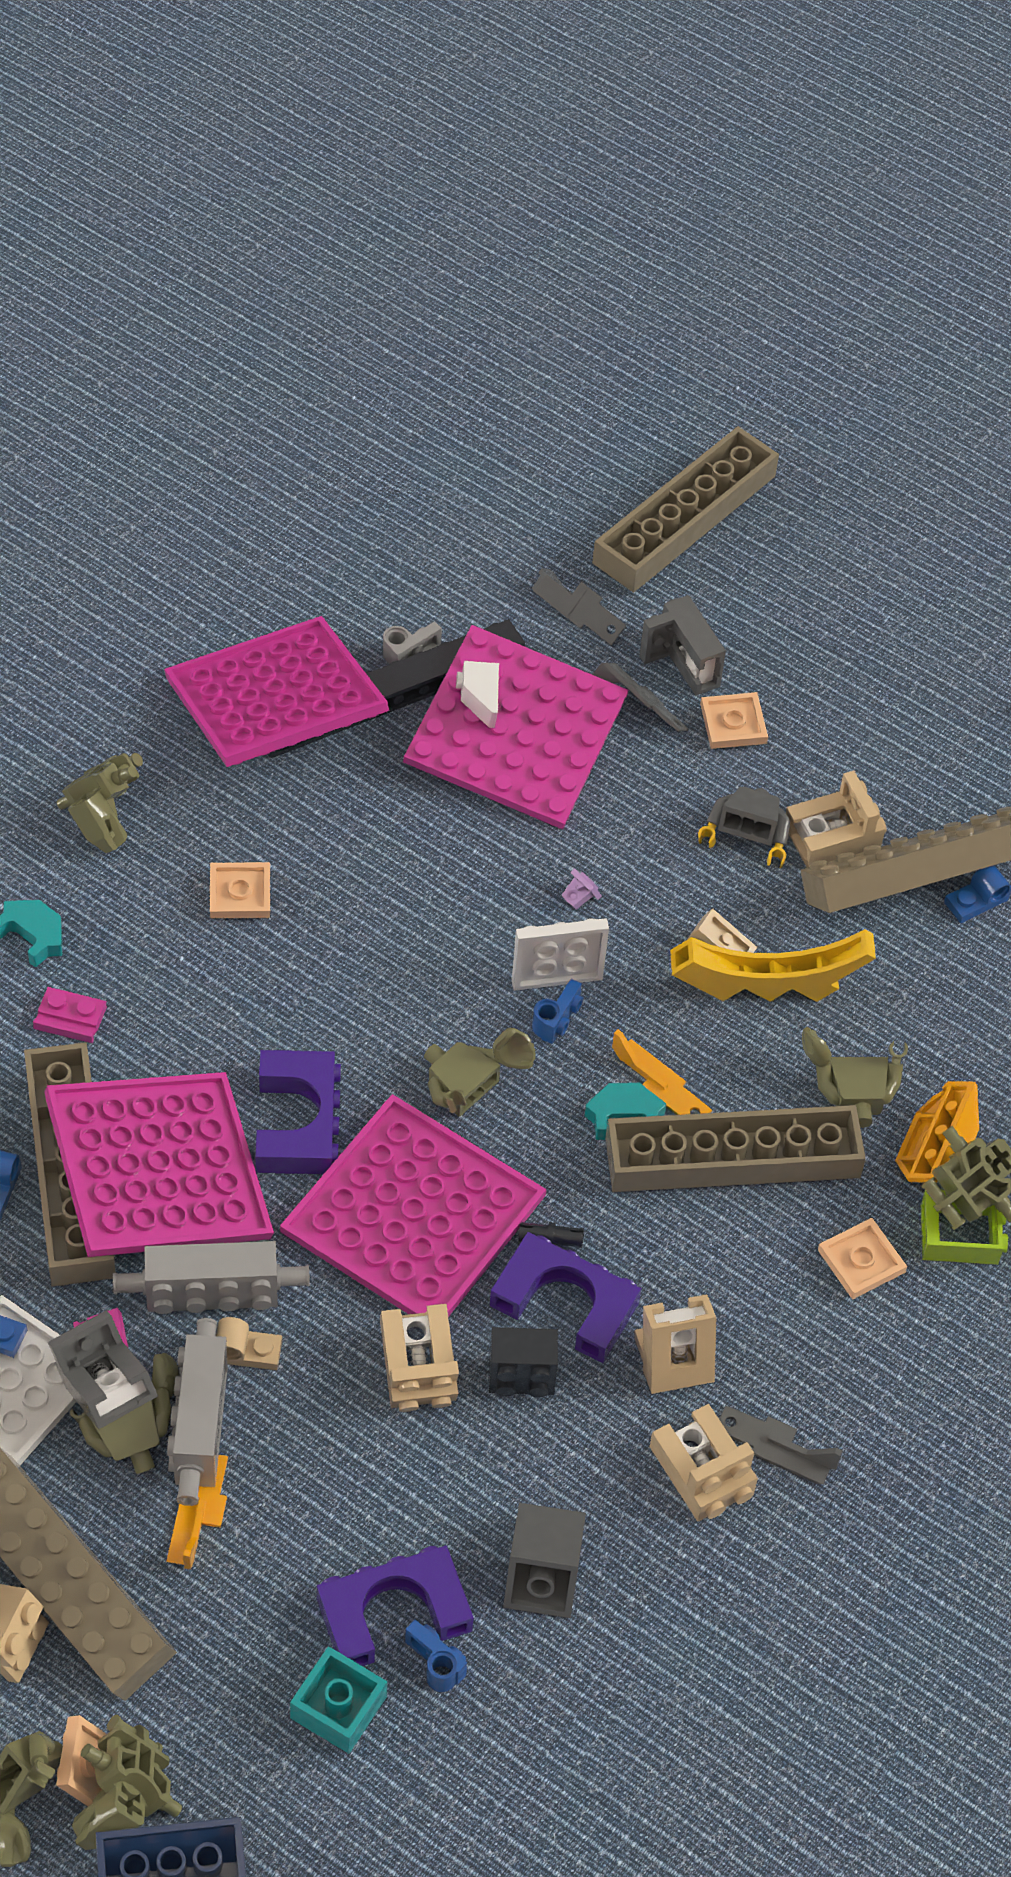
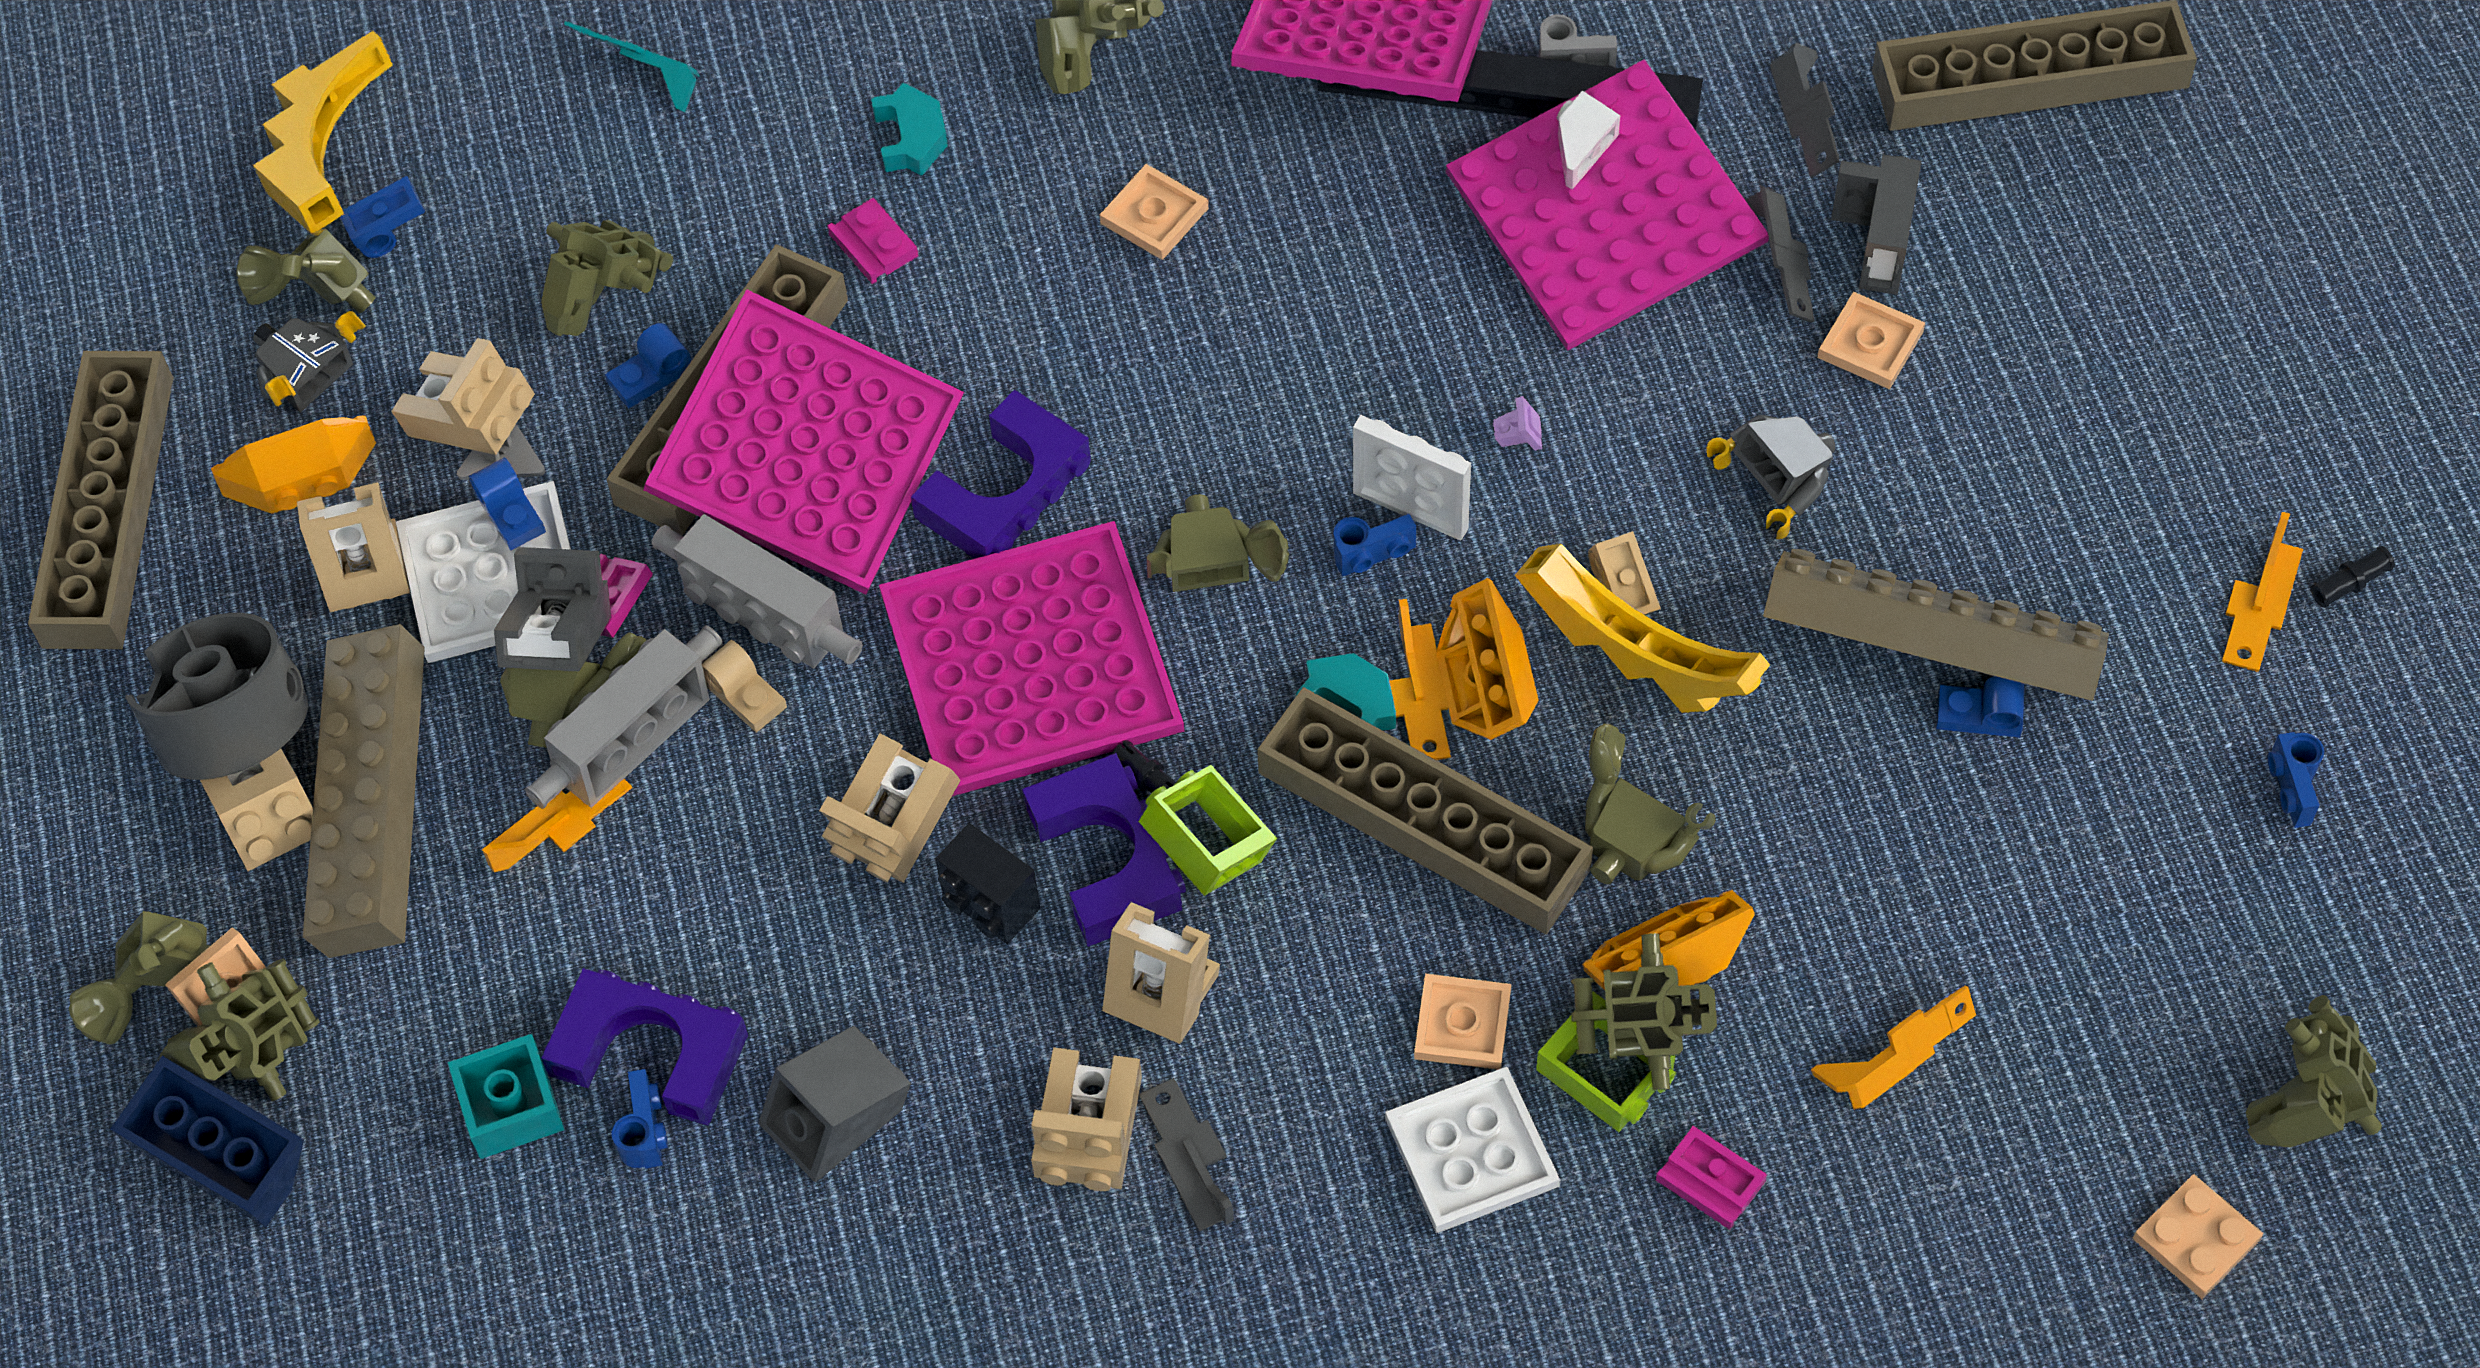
camera: 45 degrees right, 5 degrees up
(625, 1226) = (1227, 809): none -> lime window
(691, 1043) = (1485, 664): none -> light orange wedge
(836, 822) = (1876, 512): tan brick -> none
(933, 1328) = (1472, 1149): none -> white plate

